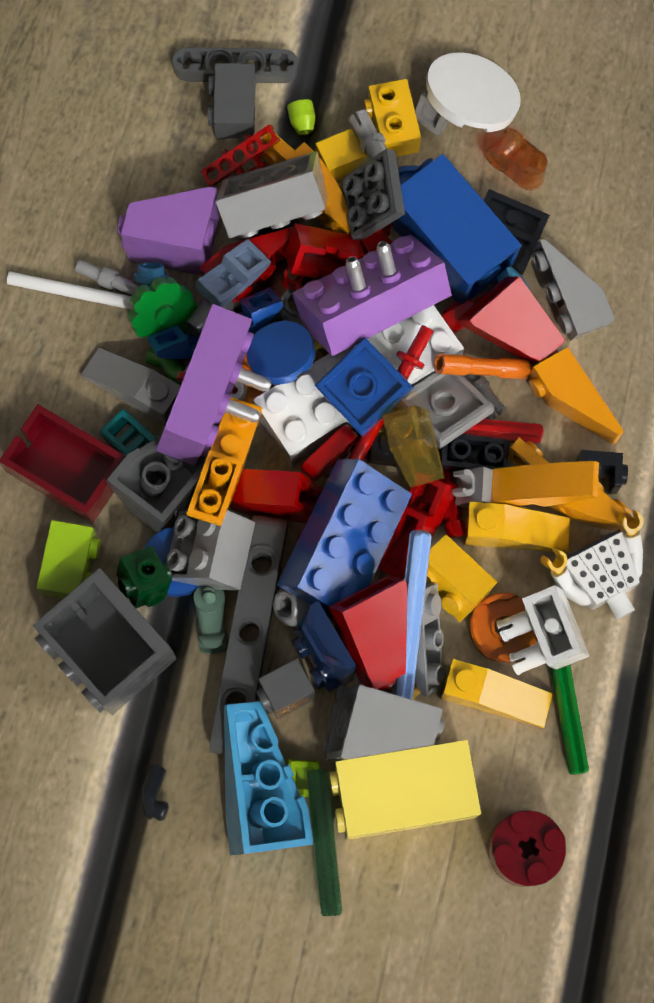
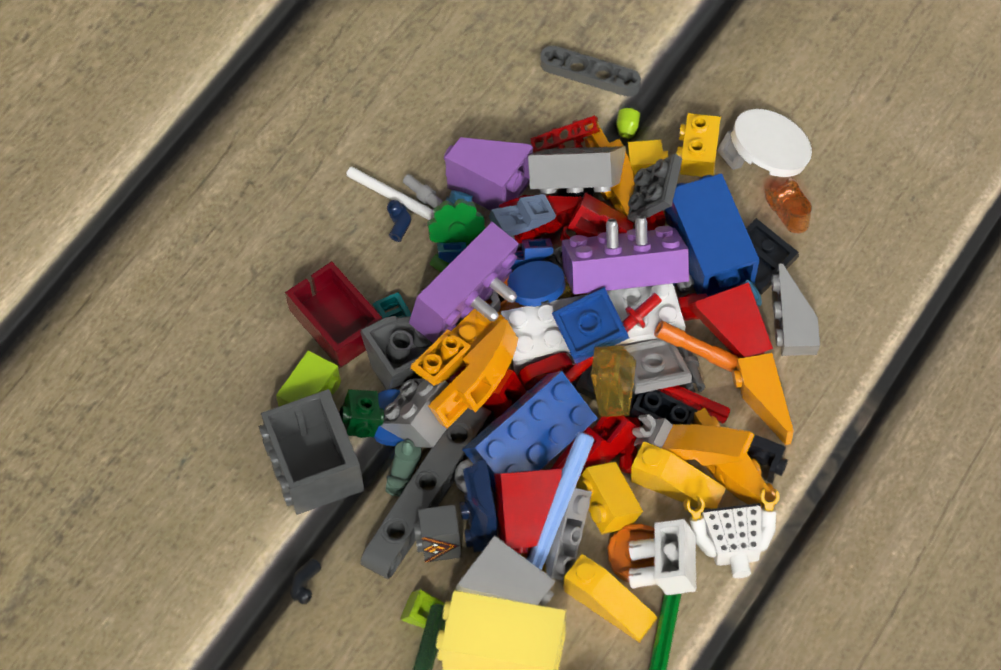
camera: 25 degrees right, 15 degrees down
(91, 317) = (400, 218): none -> dark blue arm
(133, 384) = (407, 270): light grey slope -> none
(233, 100) = (576, 93): dark grey brick -> none
(260, 793) = (387, 608): dark azure wedge -> none
(269, 481) = (480, 378): none -> light orange slope
(371, 141) = (672, 146): light grey pin -> none

